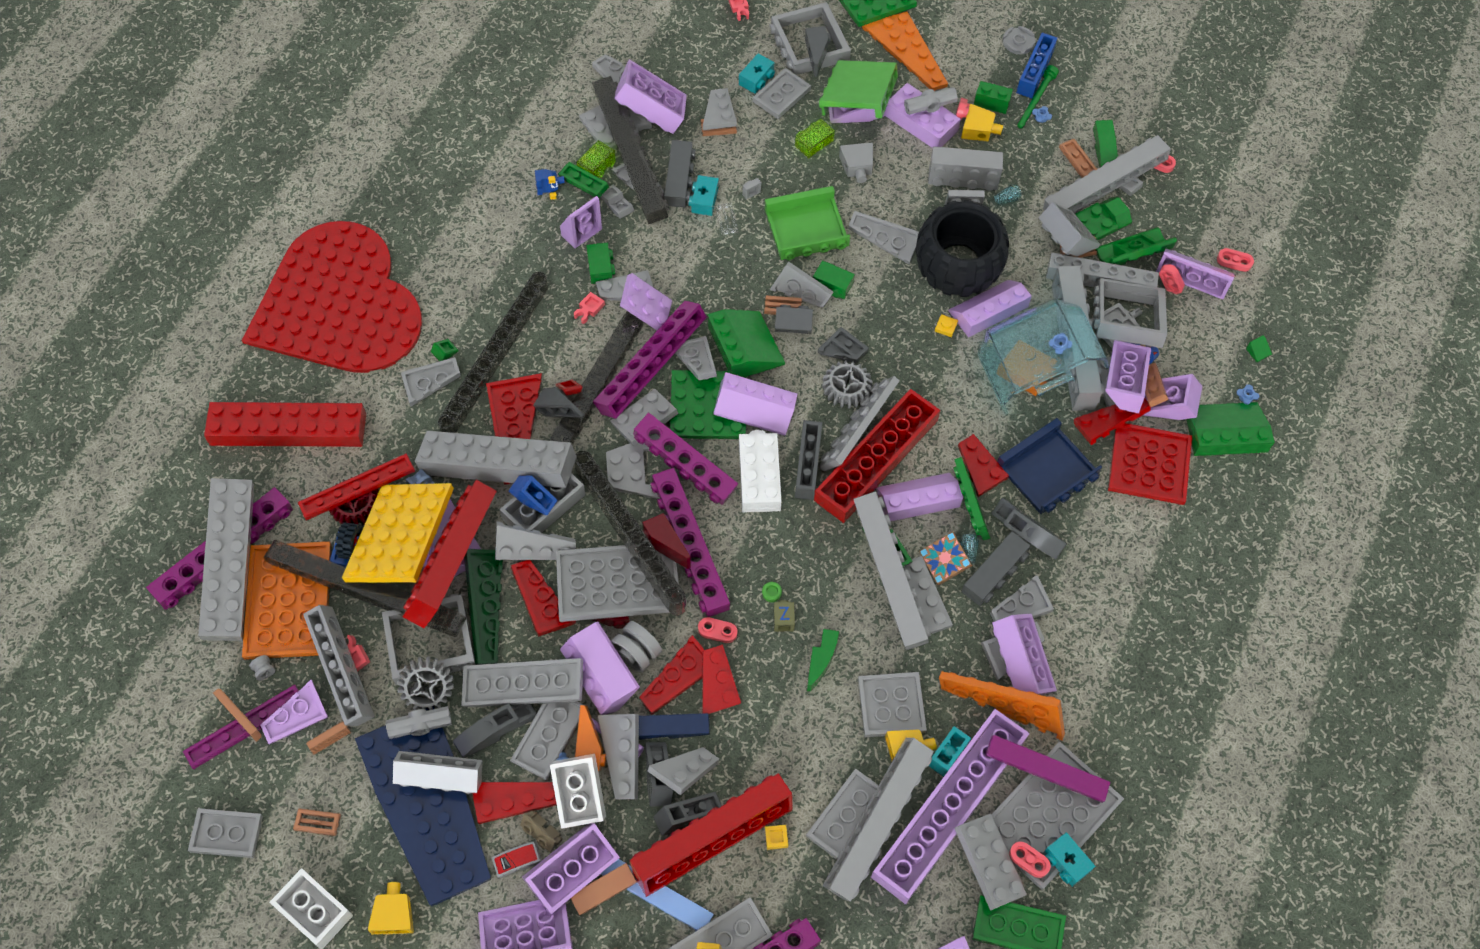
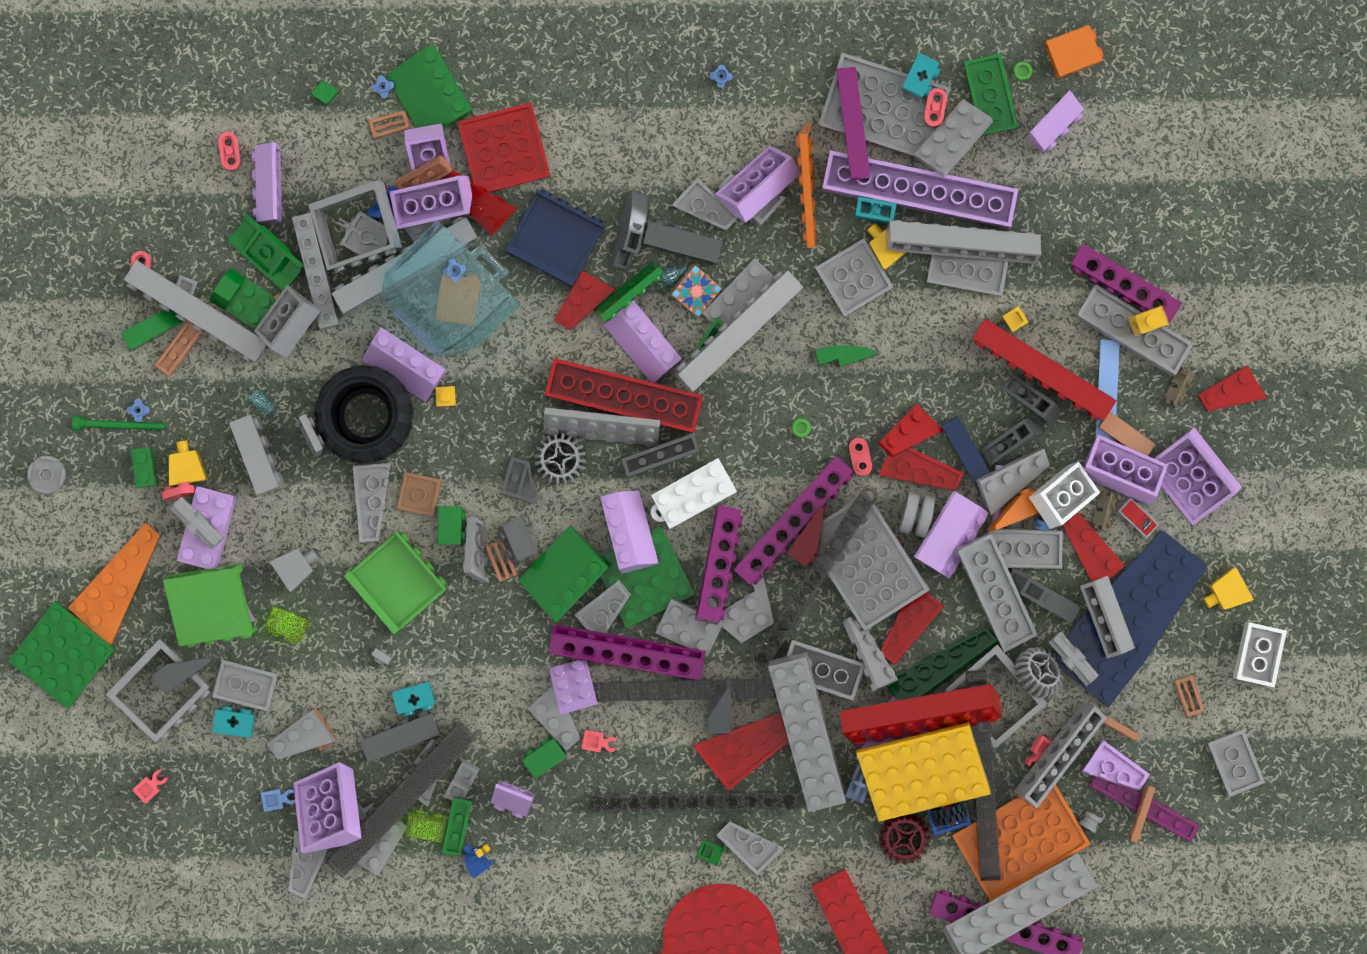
camera: 115 degrees left, 25 degrees up
(356, 486) = (894, 840): red tile -> none
(533, 494) = (828, 676): blue slope -> none
(569, 387) = (696, 710): red tile -> none
(680, 76) = (274, 799): none -> medium blue plate
(684, 770) = (1001, 418): light grey wing -> none
(784, 616) = (820, 405): olive brick -> none
(872, 272) = (419, 494): none -> medium nougat tile
(1036, 65) = (80, 439): blue brick -> none
(1148, 673) = (721, 71): none -> medium blue plate
(1171, 279) = (289, 202): coral plate -> none
(1209, 398) = (392, 131): none -> nougat tile

